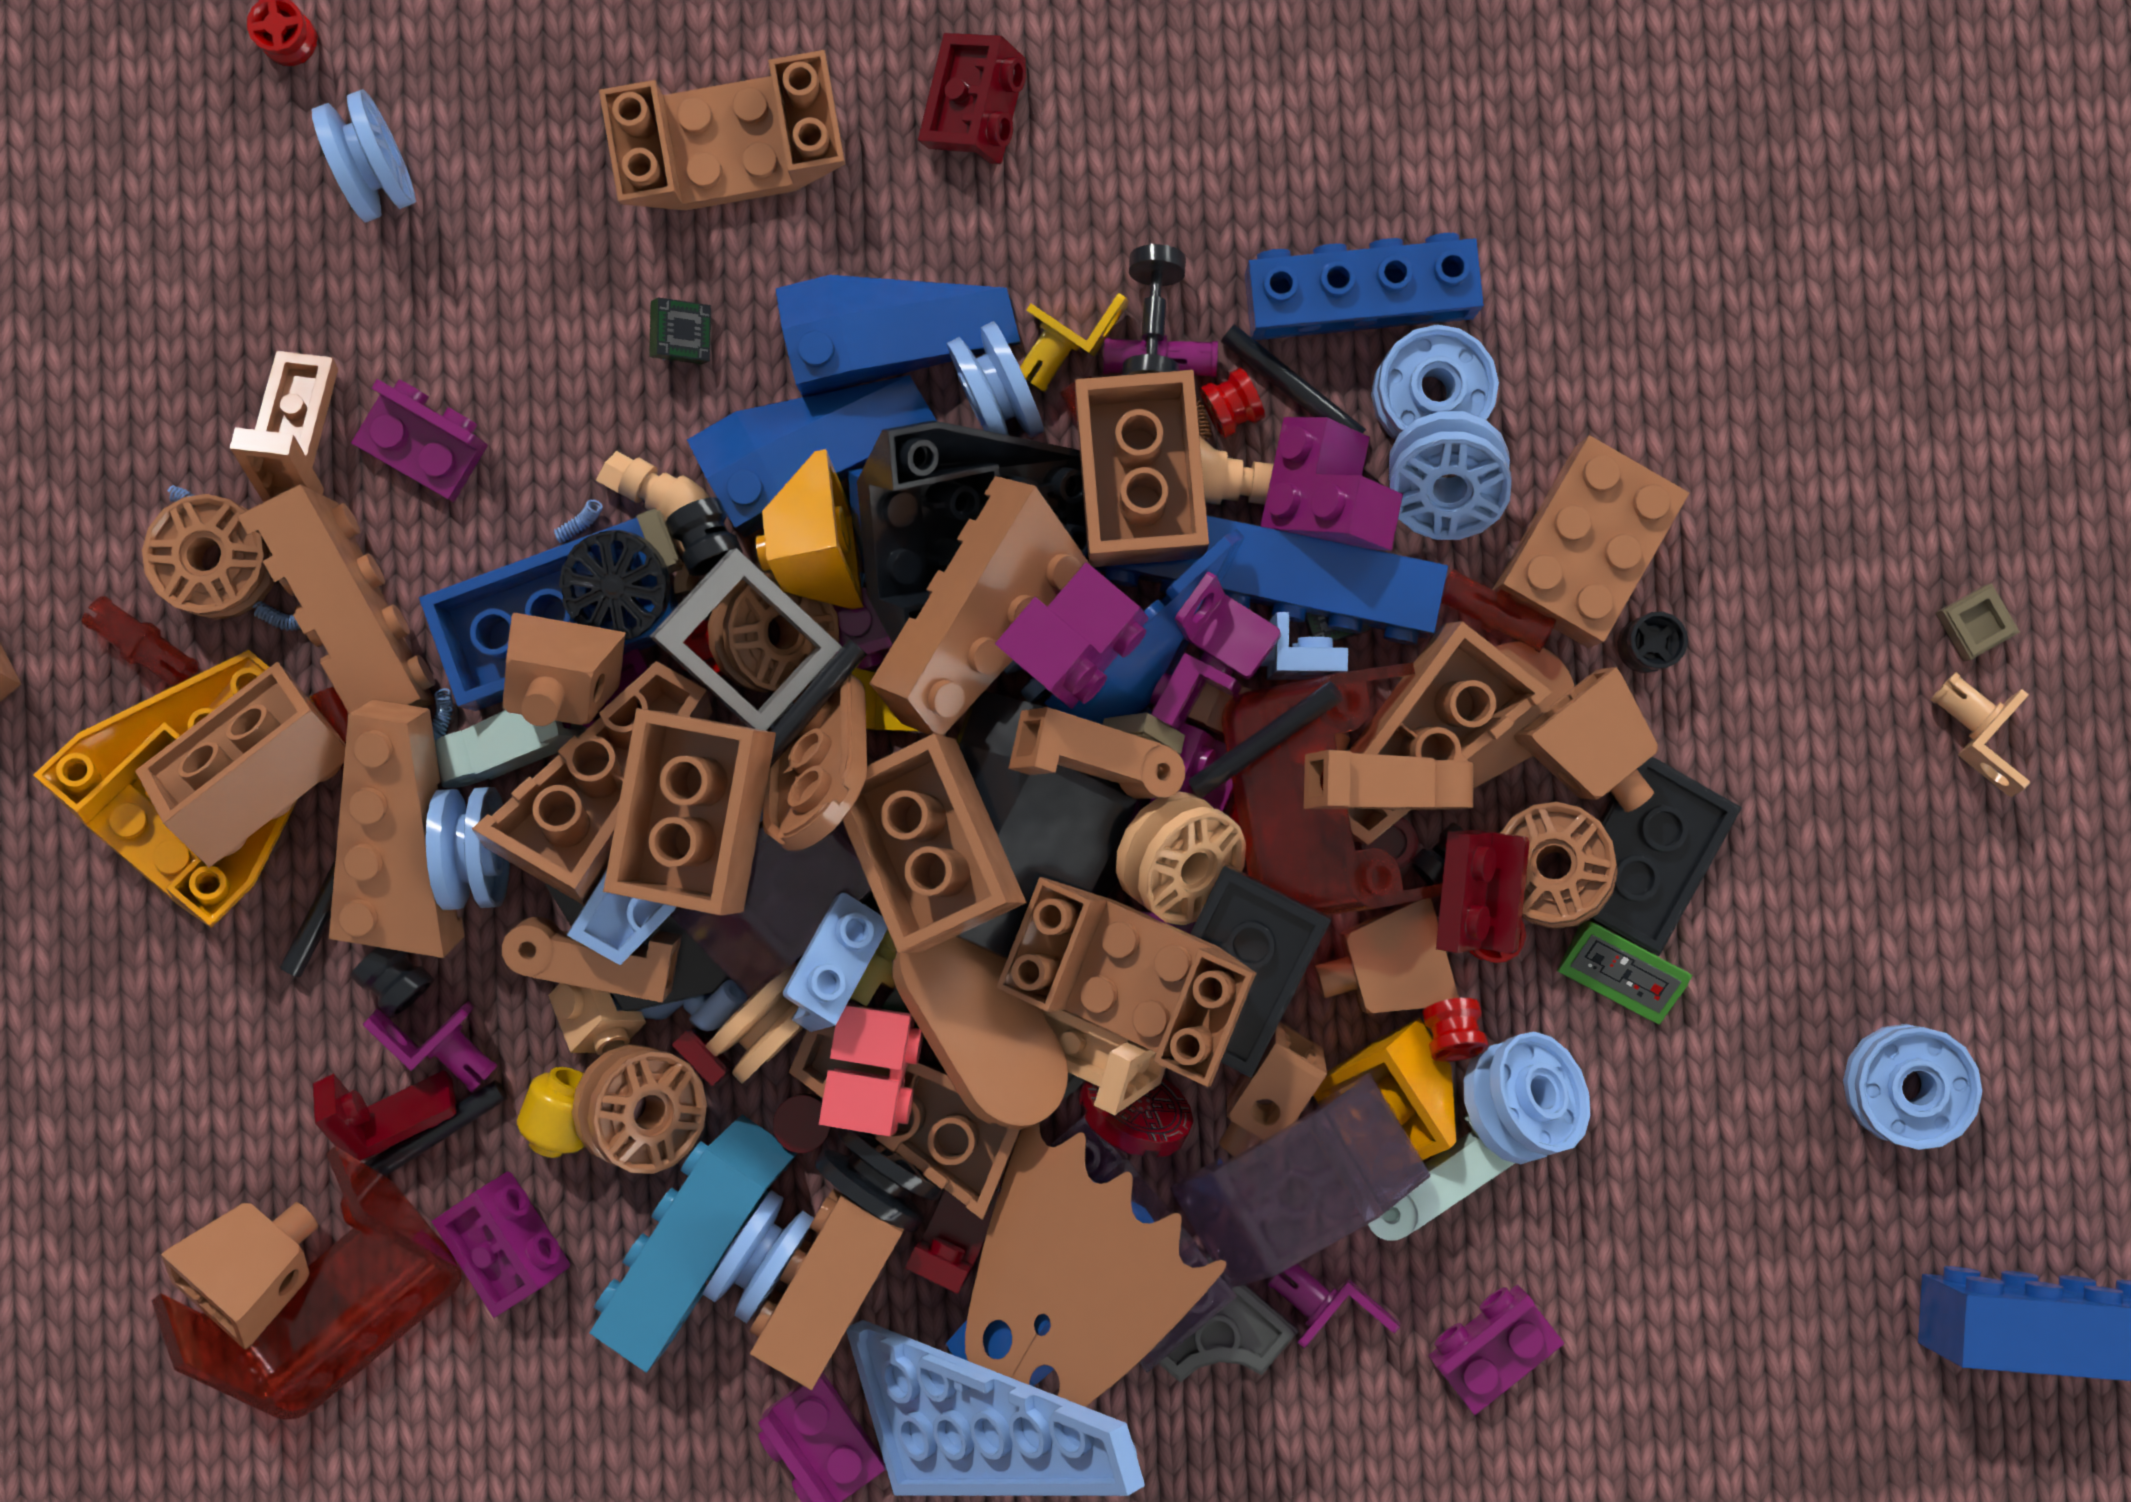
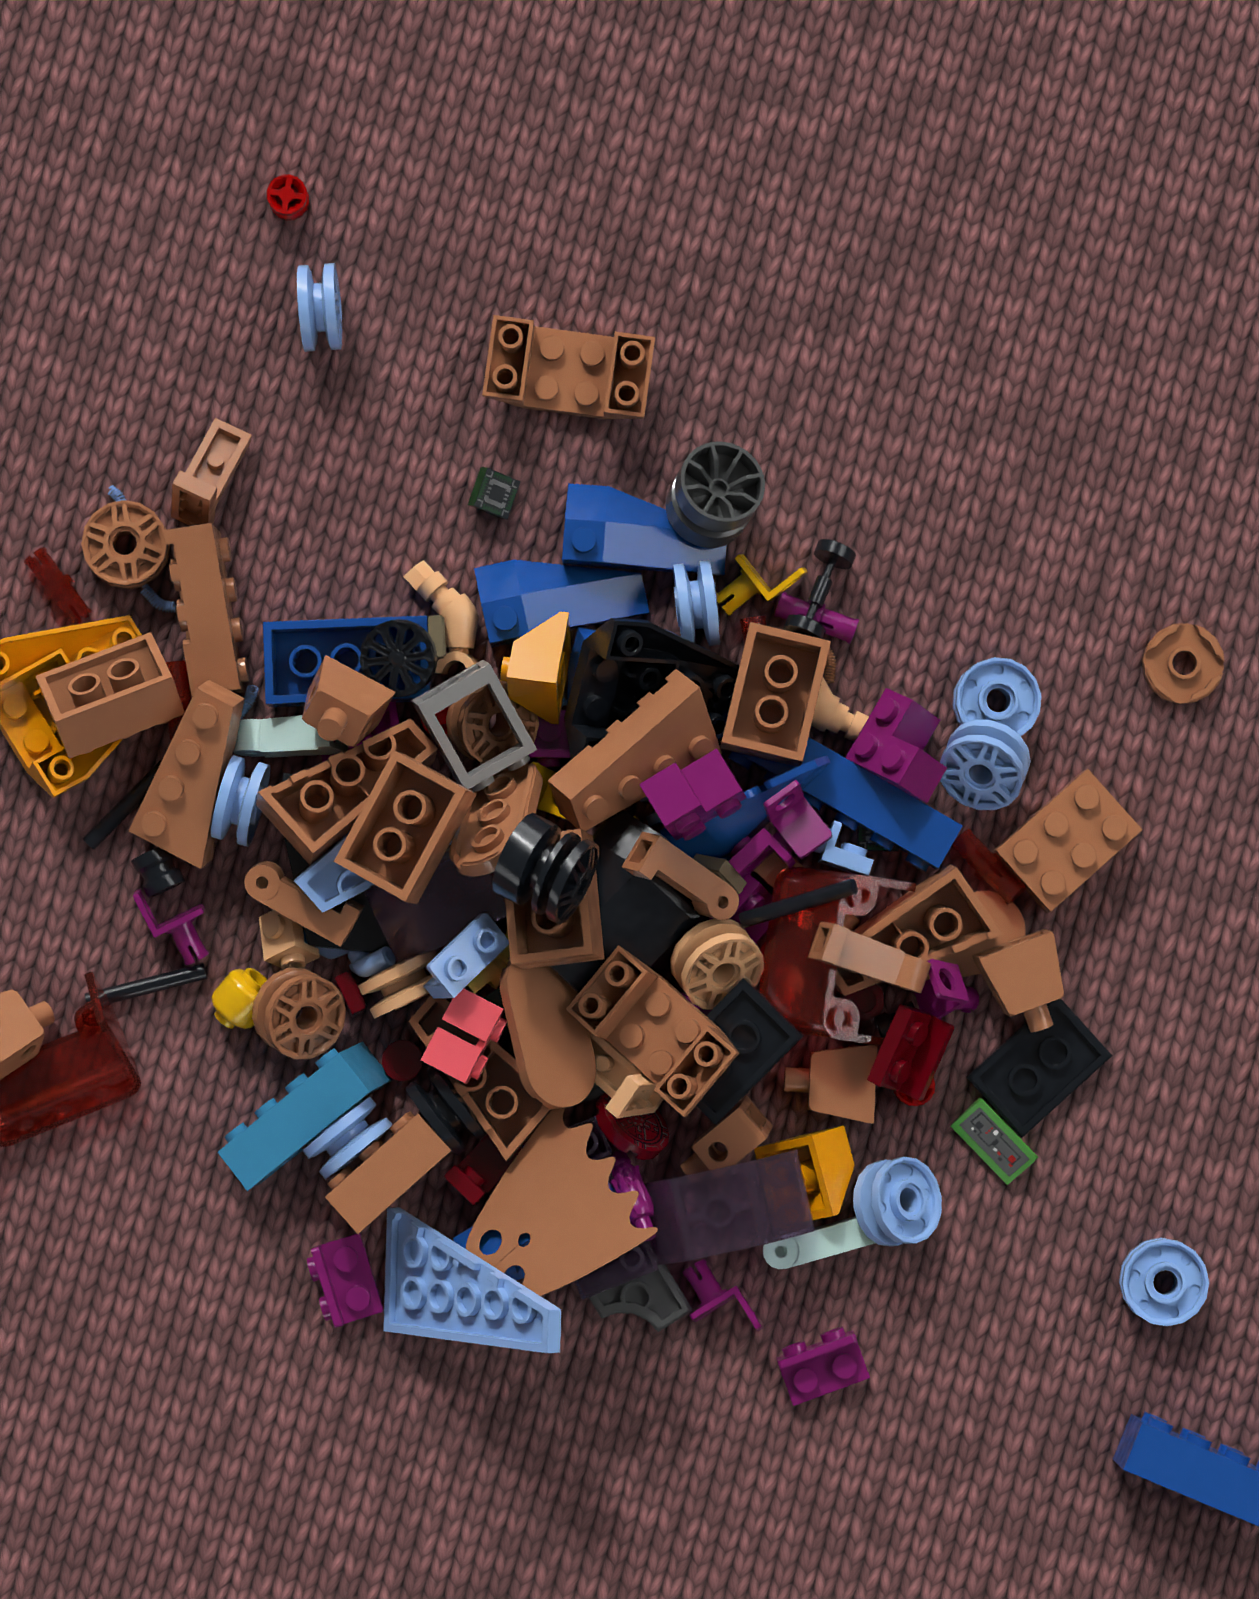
camera: 20 degrees right, 0 degrees up
(373, 1129) = (124, 966): dark red bracket -> none
(419, 441) = (291, 510): magenta bracket -> none
(501, 1243) = (173, 1074): magenta bracket -> none
(581, 520) = (382, 600): light blue leg -> none
(702, 534) = (467, 642): black wheel -> none
(815, 697) = (510, 776): black bar -> none
(900, 804) = (545, 868): none -> black wheel
(972, 232) = (715, 494): none -> dark grey wheel
(973, 96) = (747, 396): dark red bracket -> none
(1162, 1197) = (628, 1179): none -> magenta piece
(1232, 403) = (855, 665): red wheel -> none
(1285, 378) = (900, 663): black bar -> none
(1363, 287) = (970, 616): blue brick -> none
(1455, 1029) = (864, 1140): red wheel -> none
(1498, 794) = (946, 991): none -> magenta bracket
(1593, 868) = (991, 1066): nougat wheel -> none
(1637, 285) = (1159, 668): none -> nougat tile
(1662, 635) = (1094, 921): black wheel -> none

